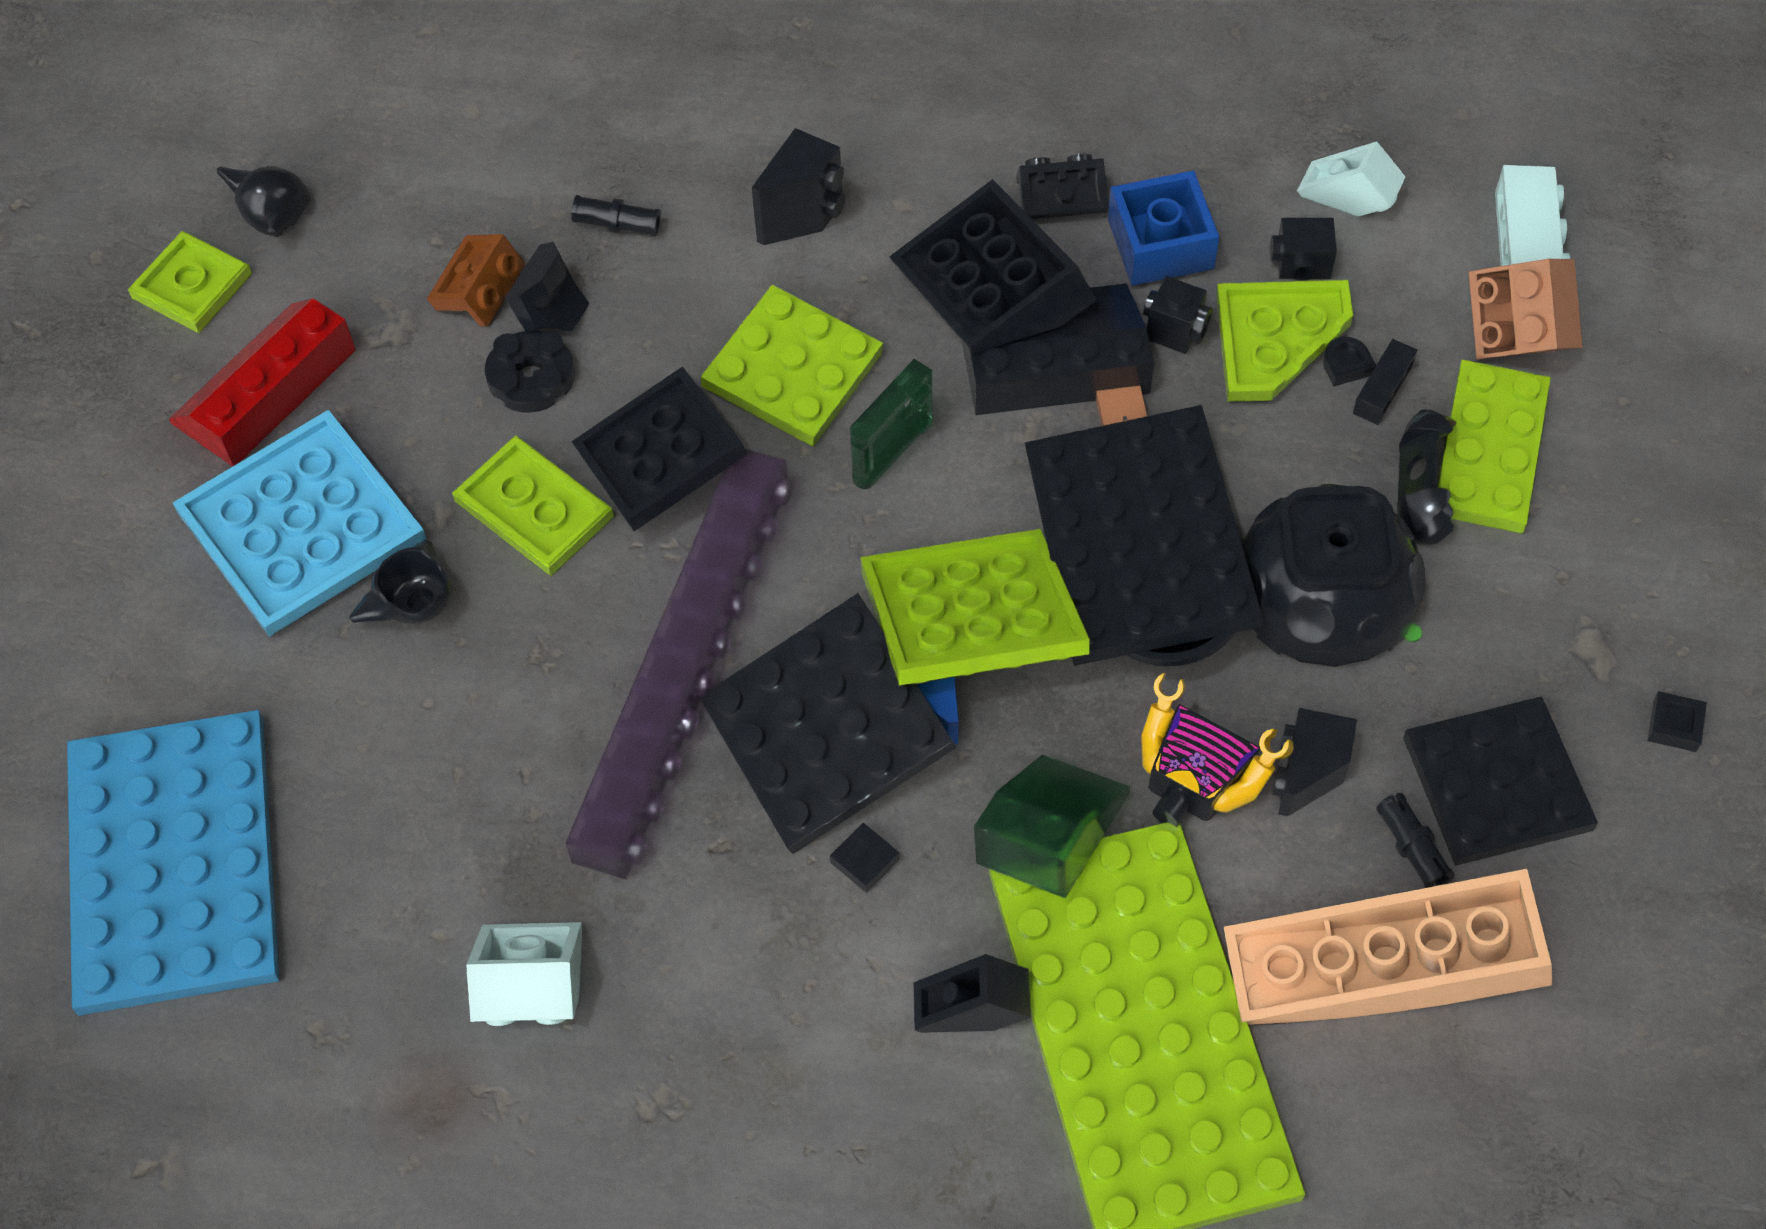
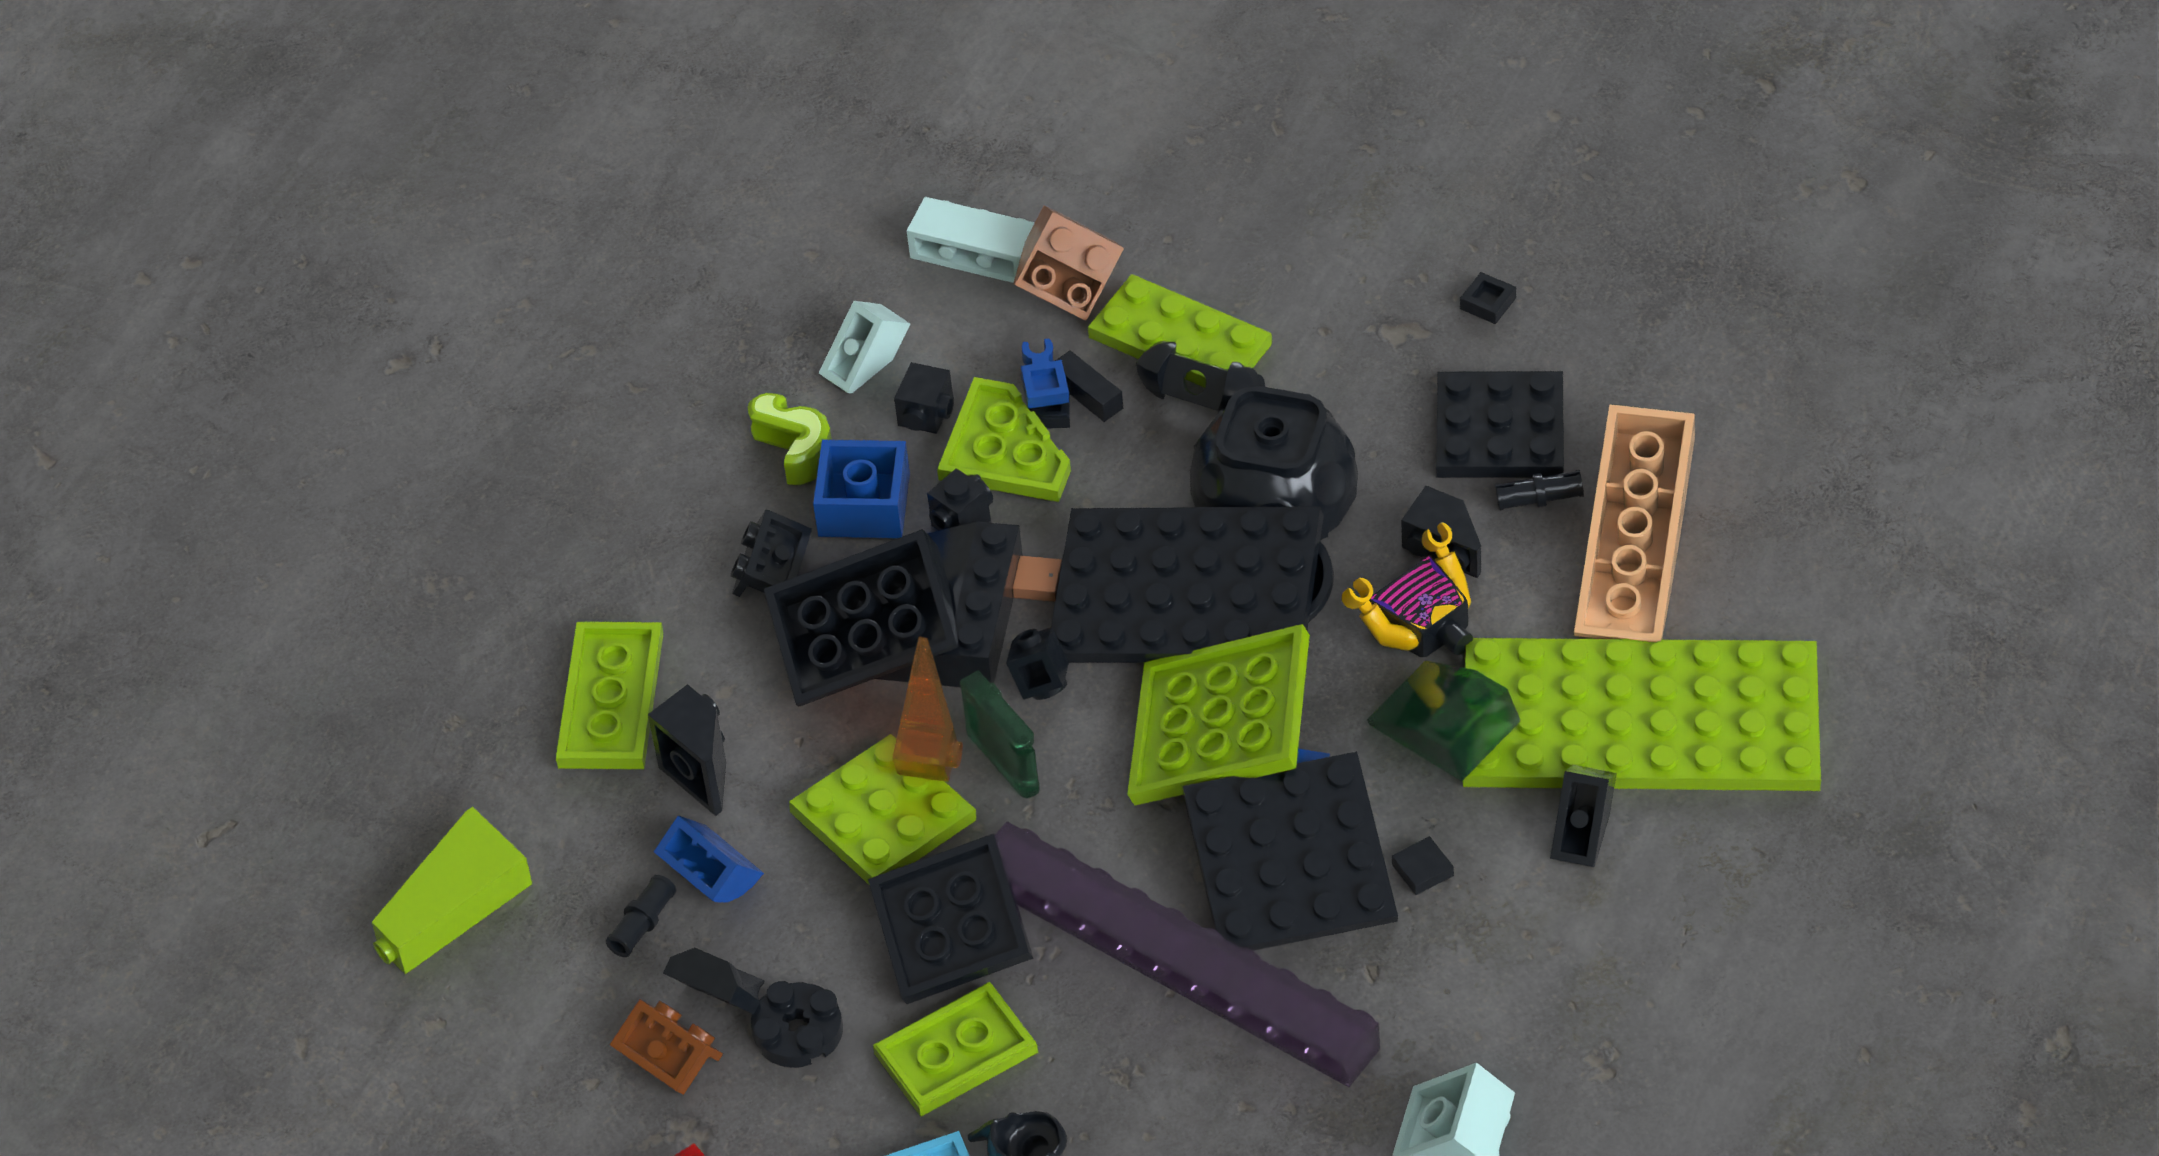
camera: 70 degrees left, 10 degrees down
(603, 70) = (450, 892): none -> lime slope
(691, 246) = (707, 860): none -> blue brick
(866, 112) = (609, 695): none -> lime plate
(874, 353) = (926, 735): none -> clear orange slope
(995, 433) = (1038, 664): none -> black brick
(1228, 147) = (792, 428): none -> lime animal
(1364, 336) = (1042, 377): none -> blue plate

